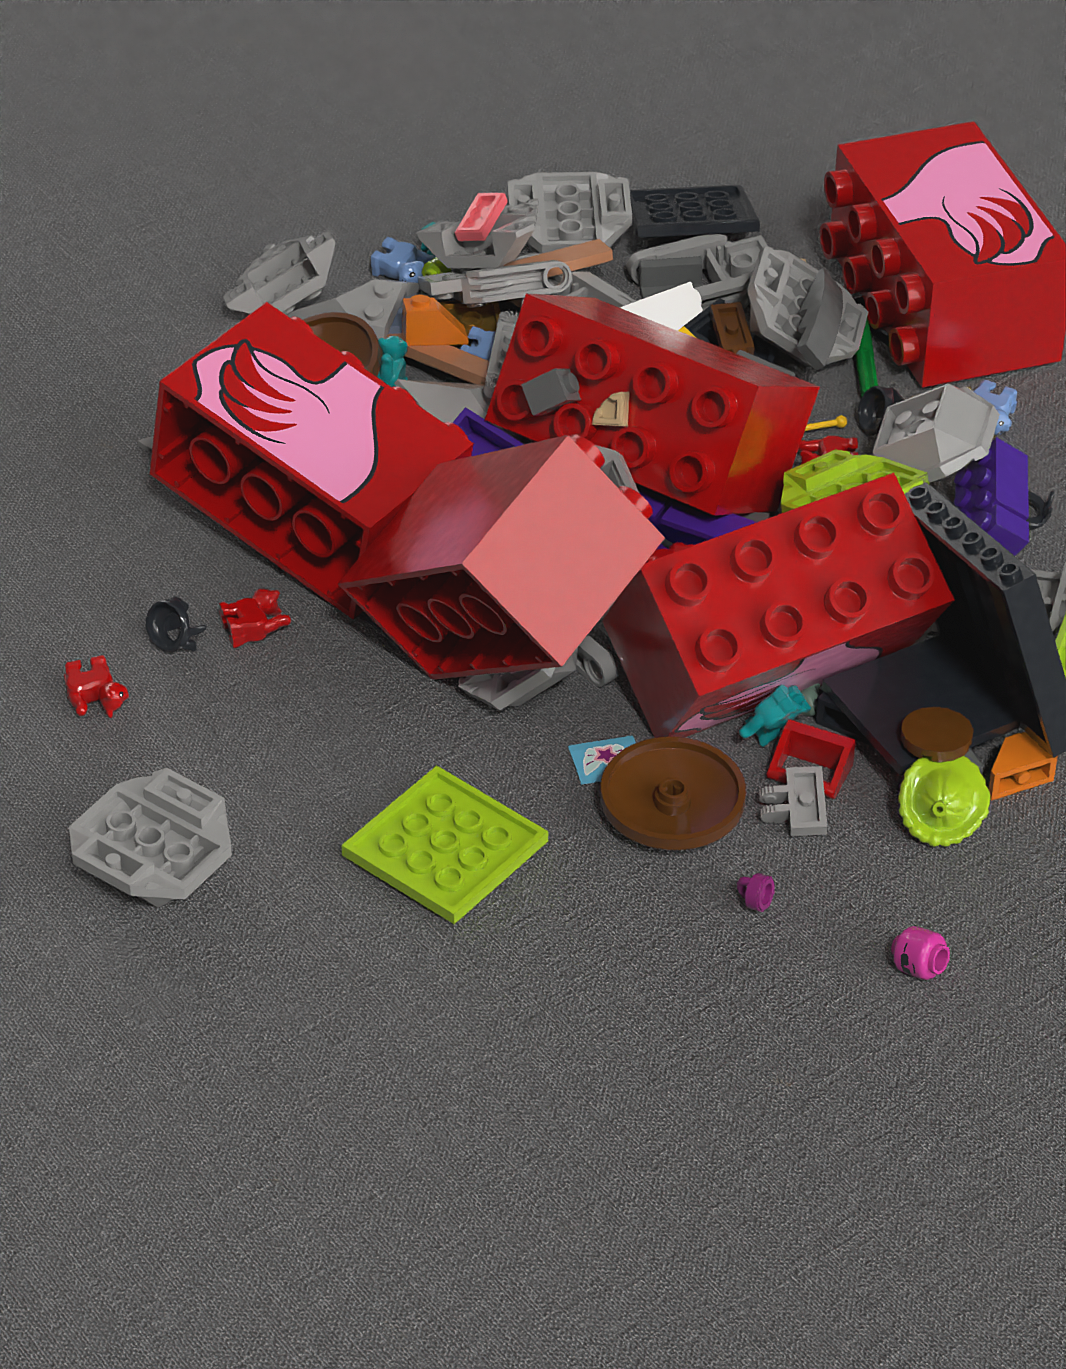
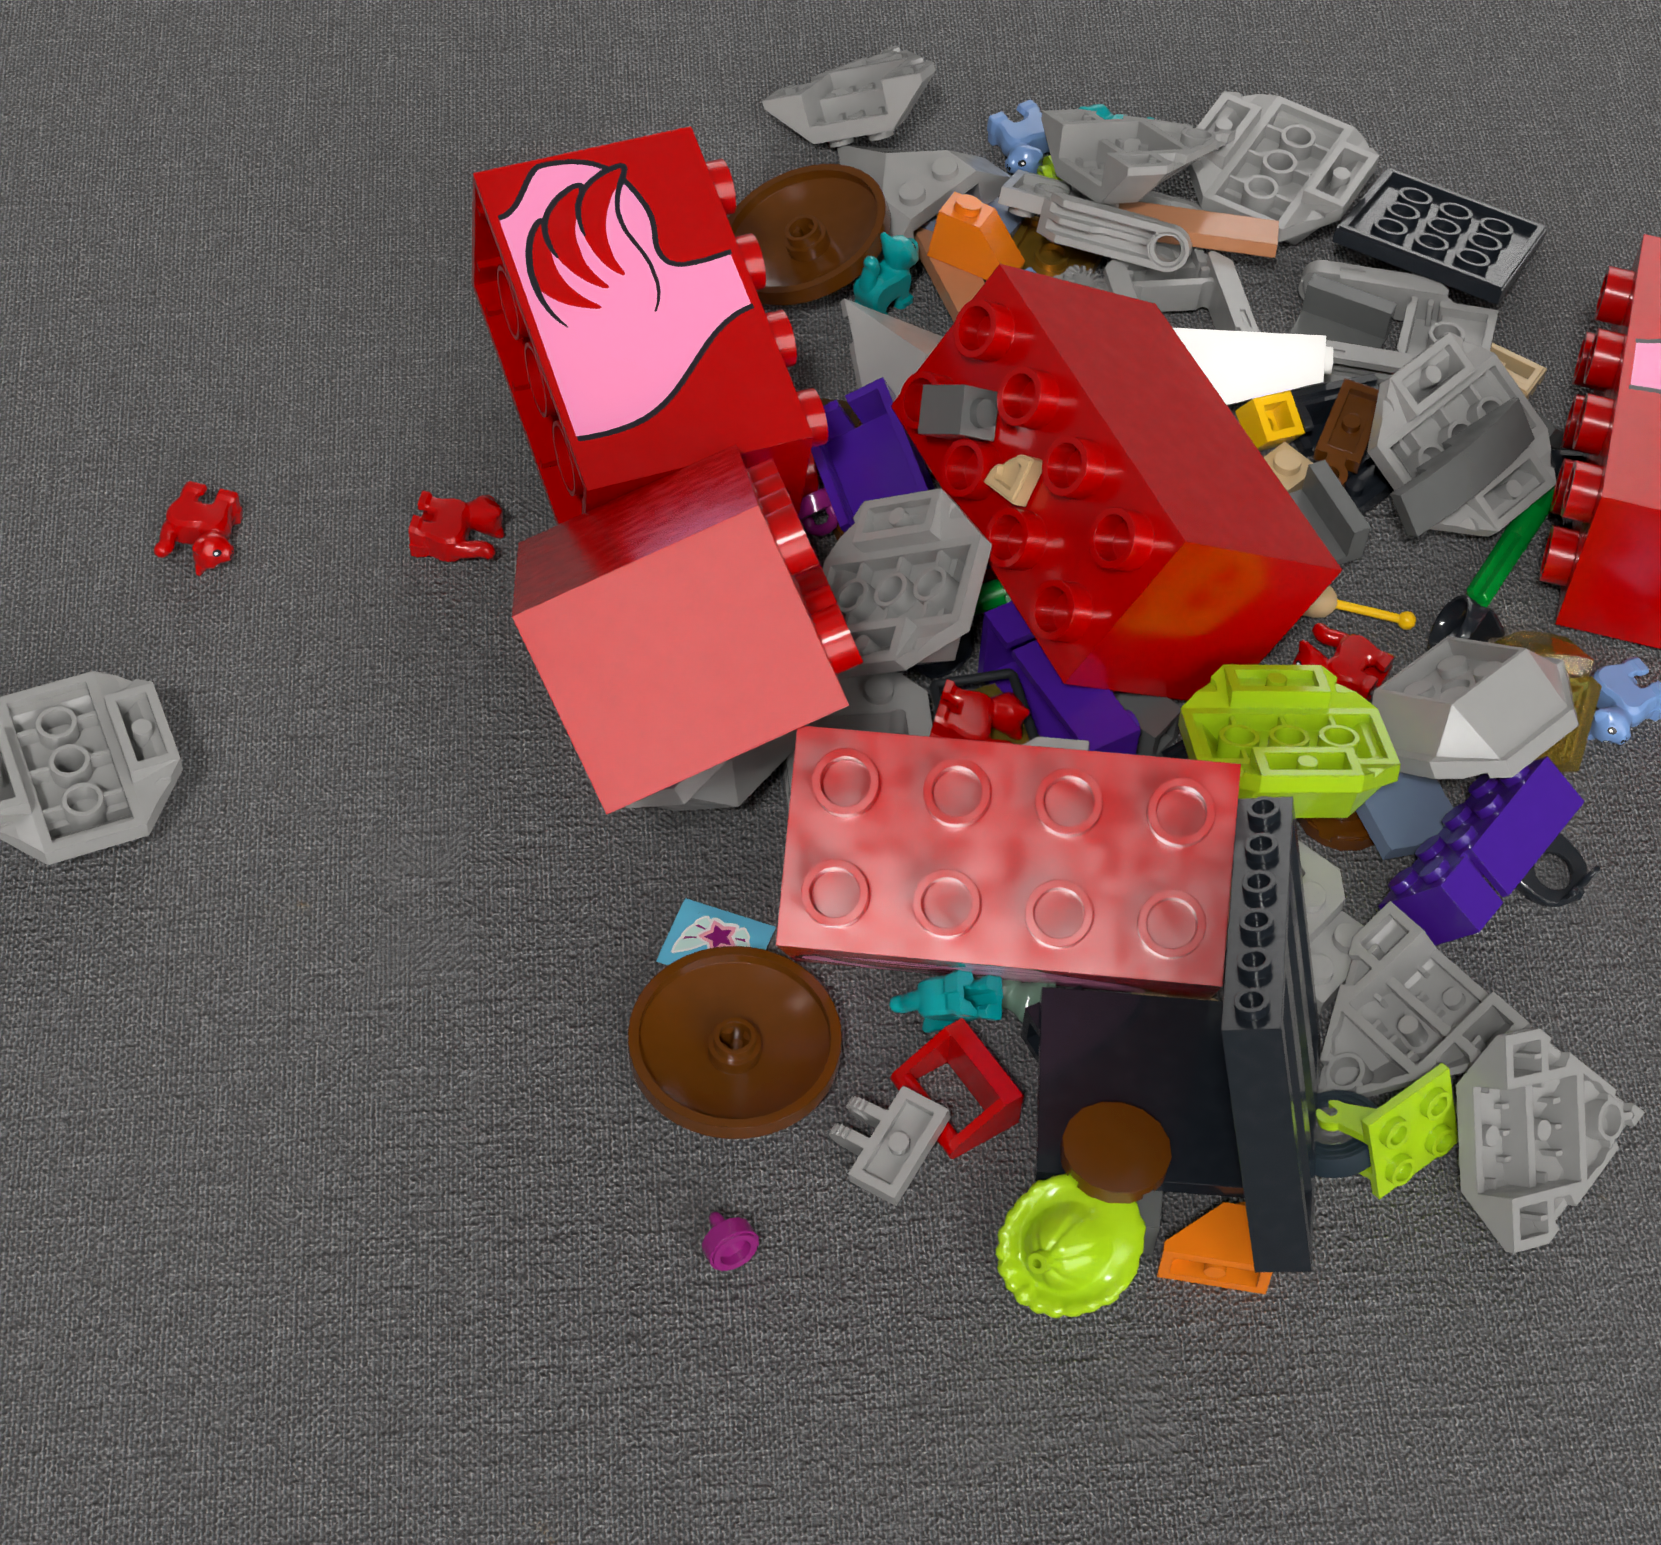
camera: 30 degrees right, 10 degrees up
(168, 616) = (352, 479): black piece -> none
(445, 844) = (416, 956): lime plate -> none
(481, 217) = (1132, 125): coral plate -> none
(920, 953) = (860, 1455): dark pink head -> none

